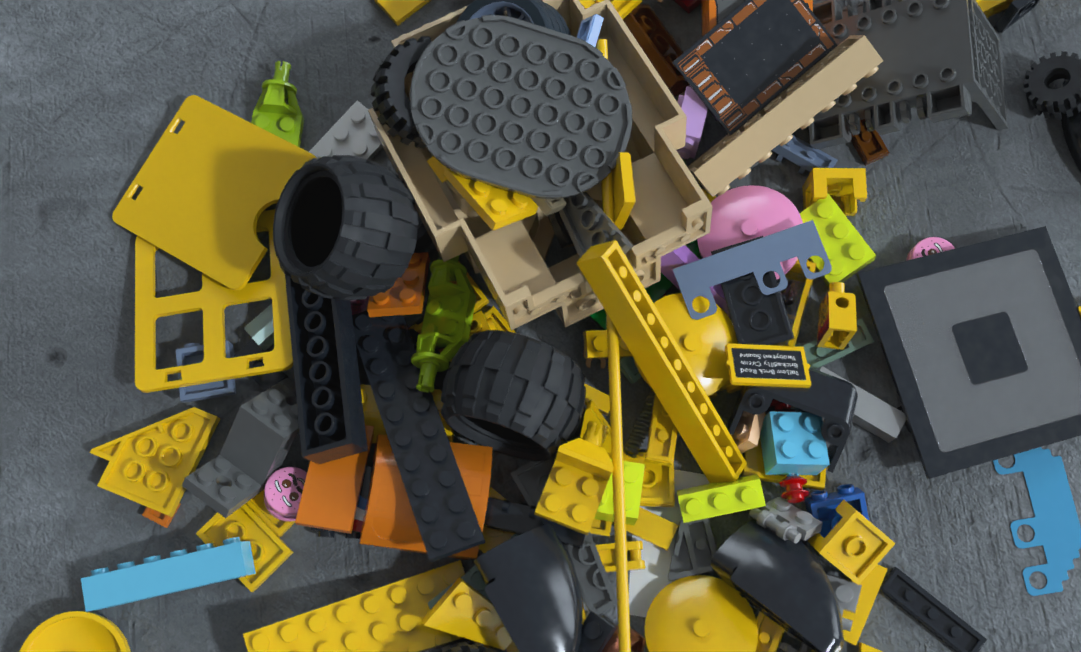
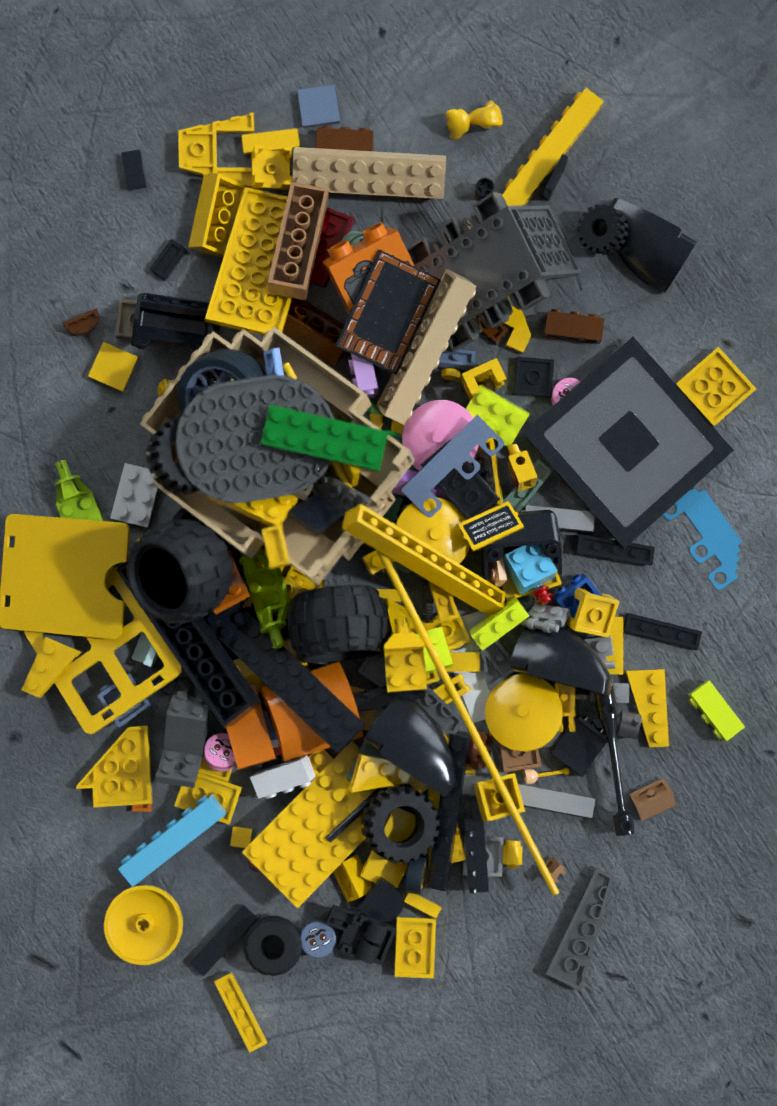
camera: 30 degrees left, 10 degrees up
(139, 285) = (48, 665): none -> yellow wing
(258, 615) = (241, 837): none -> yellow tile
(348, 563) = (283, 777): none -> white brick
(403, 566) = (319, 761): none -> yellow bracket
(479, 247) = (275, 547): none -> yellow tile
(550, 237) = (316, 515): none -> black tile
(608, 141) = (324, 438): none -> green plate
(794, 172) = (450, 374): none -> yellow tile
(896, 222) = (533, 377): none -> black tile
(902, 165) = (521, 334): none -> yellow tile
(912, 478) = (612, 550): none -> black plate
(973, 184) = (573, 326): none -> reddish brown brick

